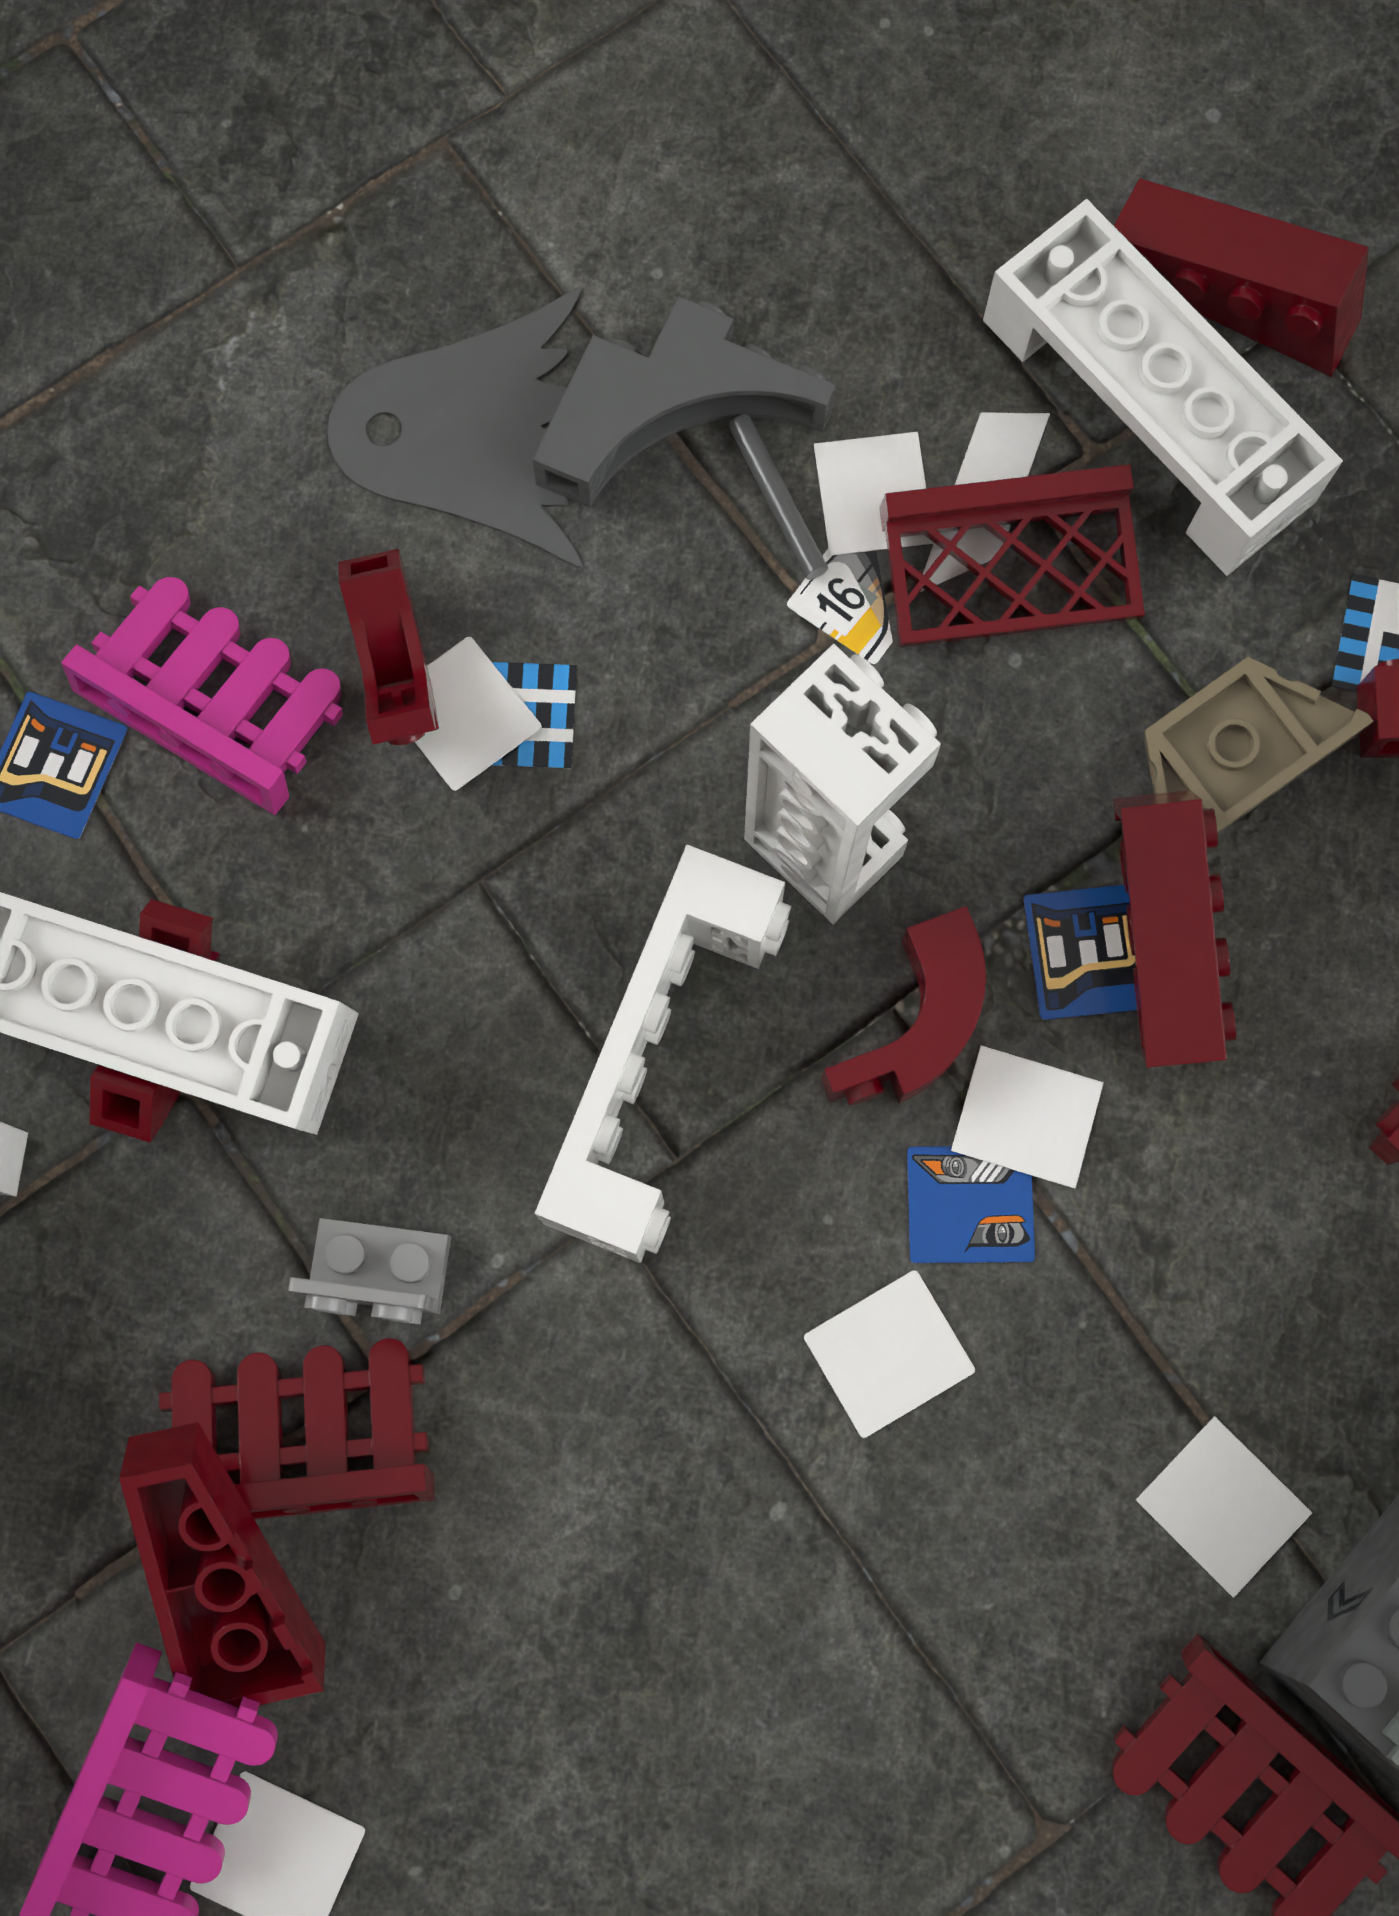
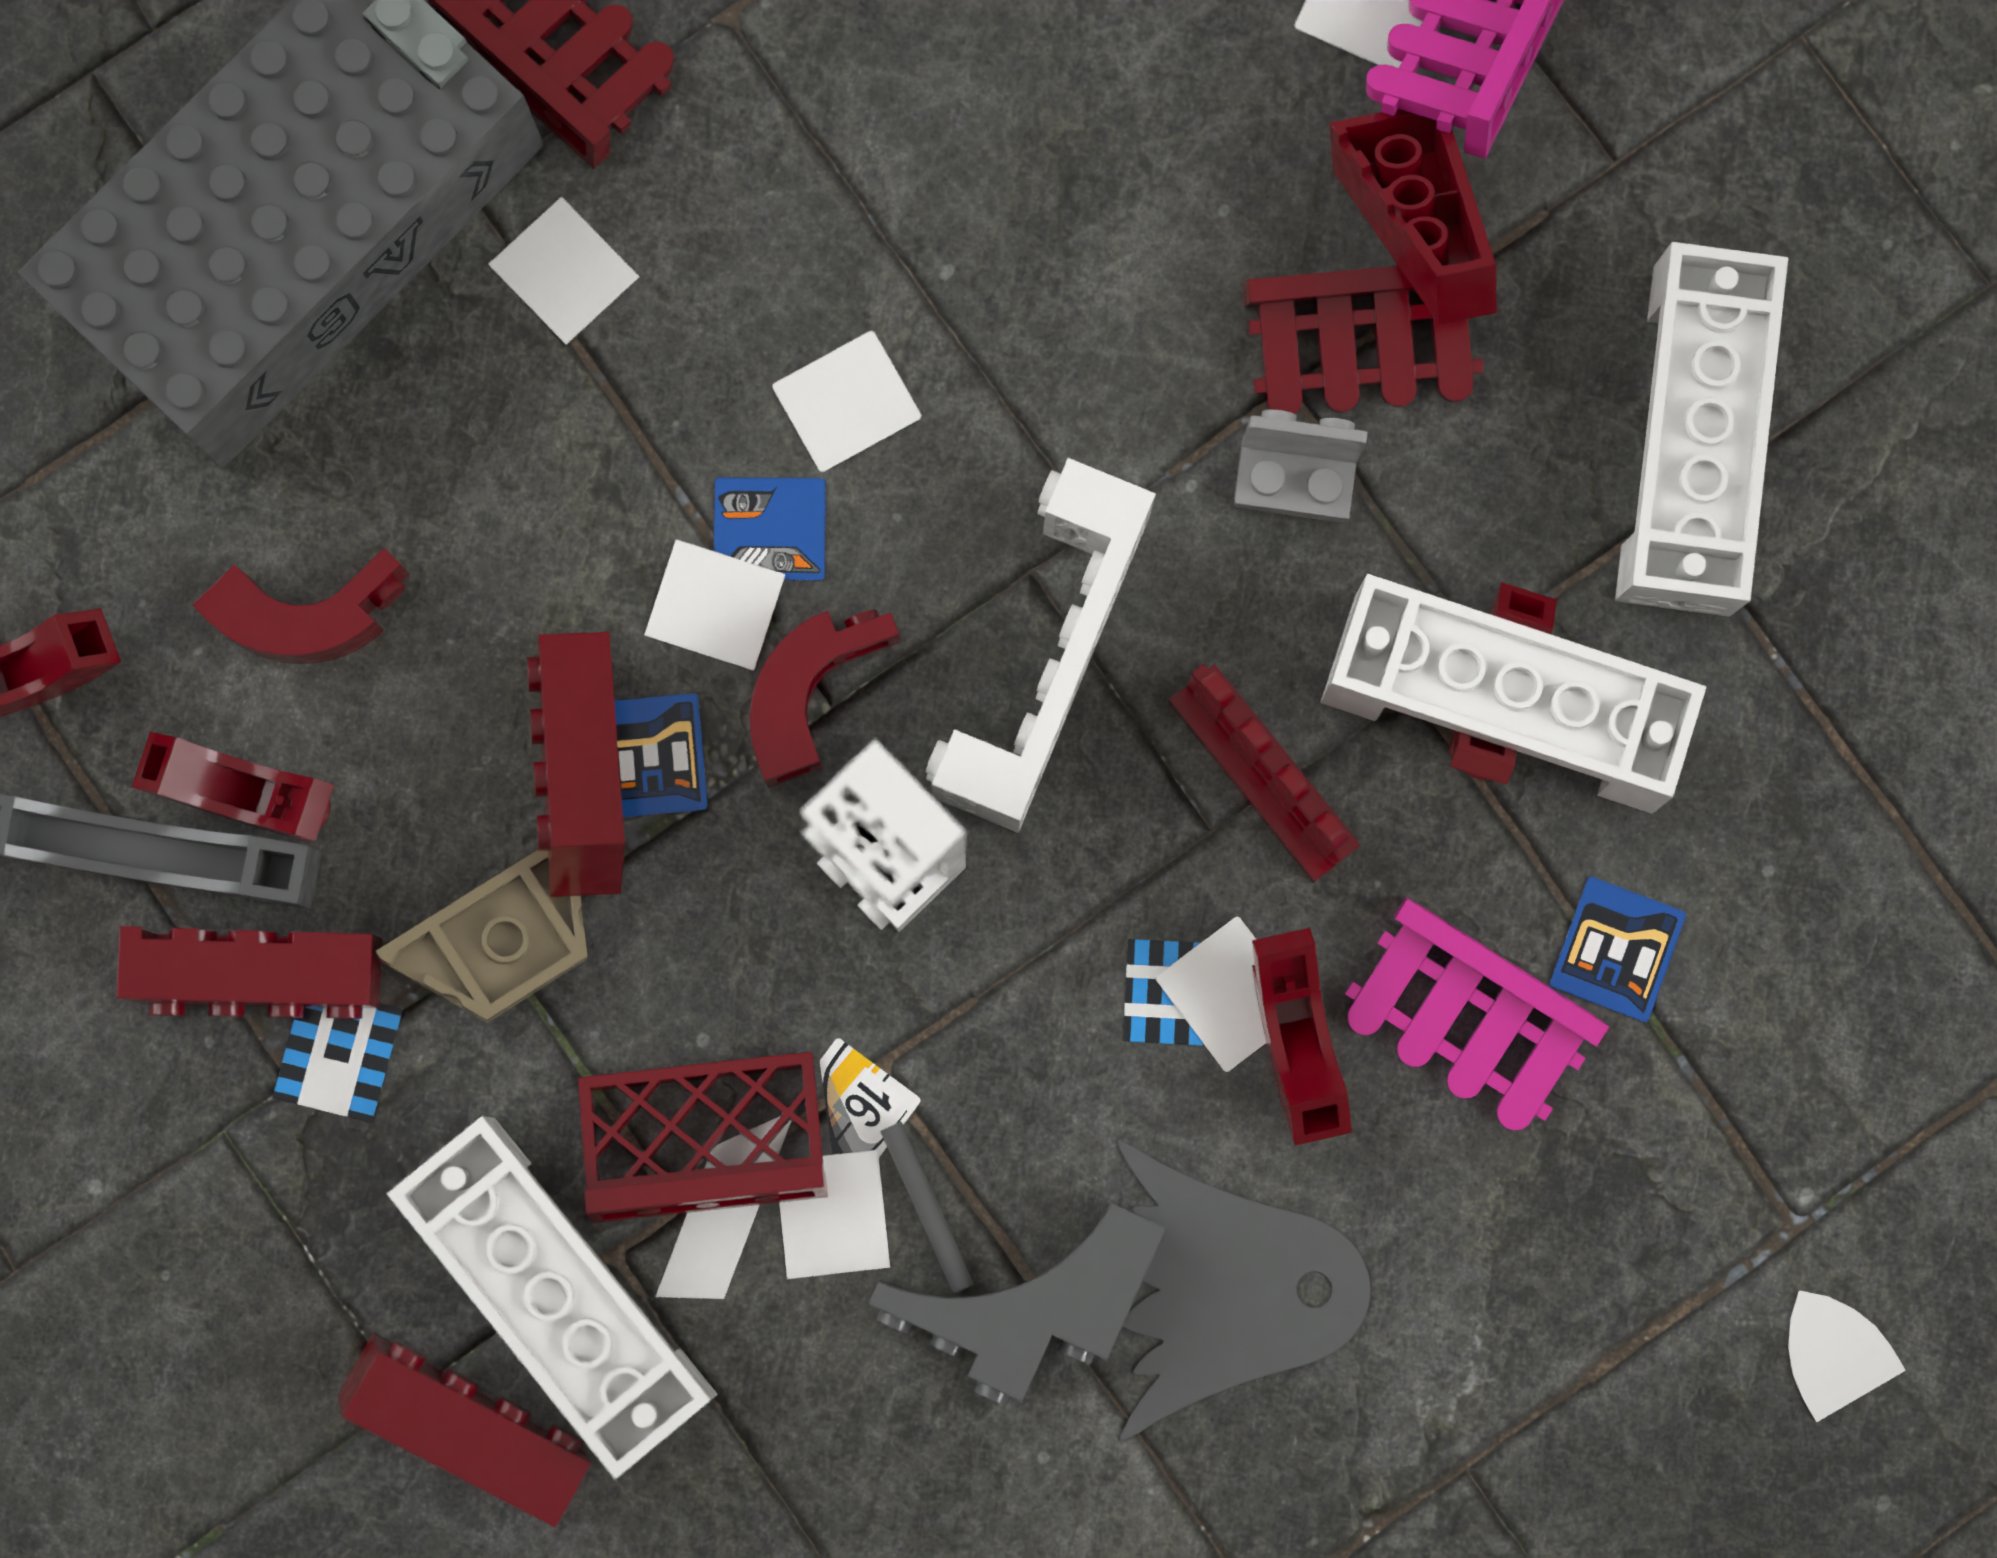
camera: 175 degrees right, 5 degrees up
(420, 935) = (1263, 772): none -> dark red fence

